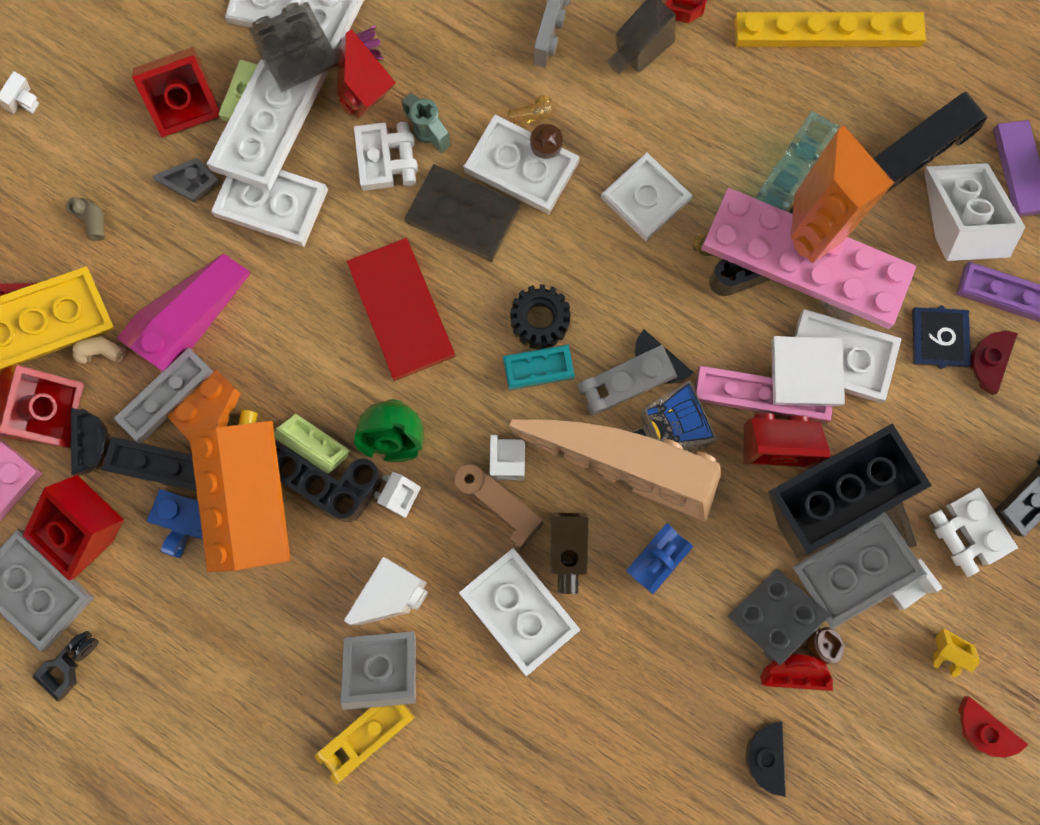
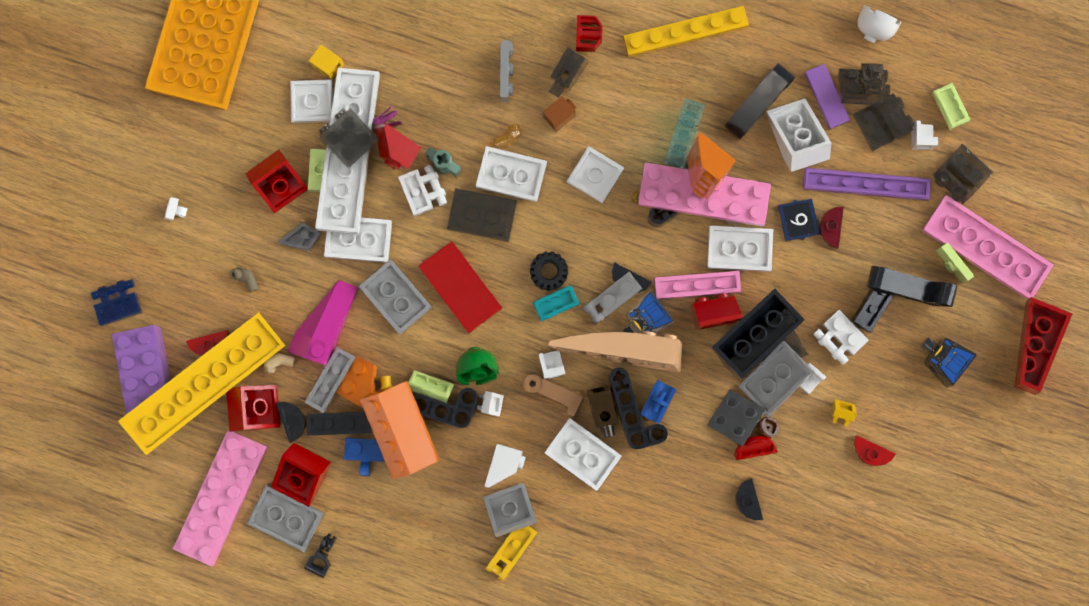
camera: 15 degrees left, 5 degrees up
(299, 298) = (395, 297): none -> light grey plate
(546, 141) = (523, 157): reddish brown tile -> none
(615, 95) = (559, 113): none -> dark orange brick
(617, 558) = (632, 407): none -> black beam
(807, 371) = (720, 265): white tile -> none

